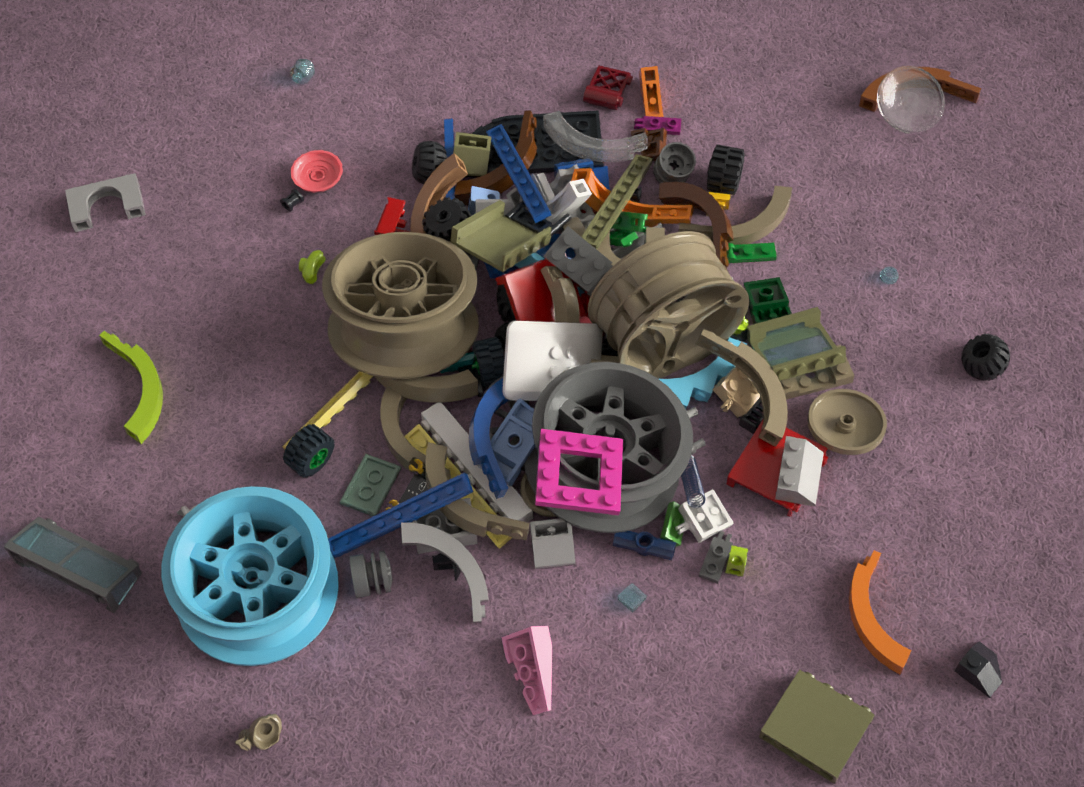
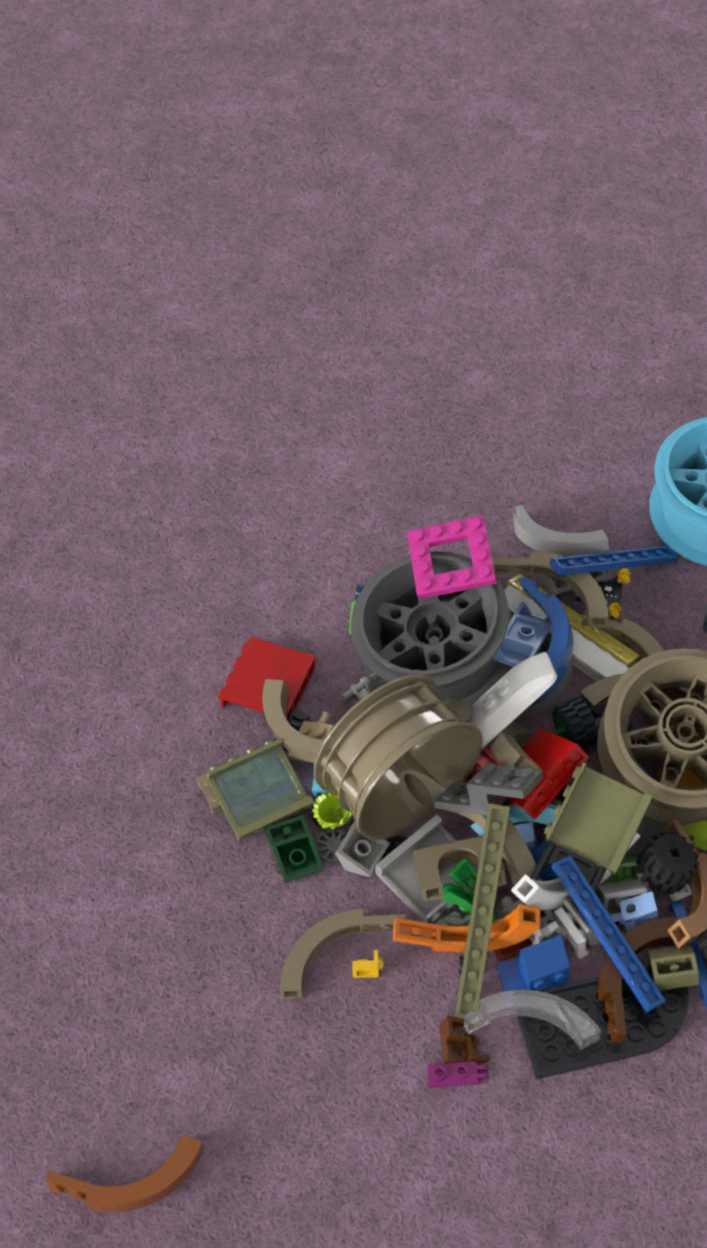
camera: 170 degrees right, 5 degrees down
(262, 733) = (673, 407): dark tan hair -> none
(370, 485) = (657, 610): sand green tile -> none
(370, 574) = (625, 525): dark grey wheel -> none
(532, 657) = (462, 491): bright pink wedge -> none
(604, 95) = (537, 1103): dark red piece -> none
(632, 597) = (387, 553): clear light blue plate -> none
(651, 91) = (476, 1118): orange slope -> none
(677, 156) = (425, 995): dark grey wheel -> none
(688, 194) = (375, 937): reddish brown arch -> none
(690, 473) = (350, 643): dark blue piece -> none
(704, 520) = (331, 623): white plate -> none
(716, 558) = (316, 599): dark grey hinge -> none
(725, 169) = (362, 995): black wheel -> none
(736, 560) = (297, 589): lime leg -> none
(751, 252) = (310, 915): green plate -> none
(799, 472) = (246, 660): light grey slope -> none
(816, 725) = (214, 481): olive panel -> none
(847, 421) = (202, 728): dark tan dish -> none
(868, 629) = (171, 553): orange arch -> none
(889, 275) = (161, 908): clear light blue plate -> none
(910, 99) = (137, 1147): clear dish -> none
(980, 669) = (78, 546): black slope -> none
(985, 356) = (58, 822): black wheel -> none

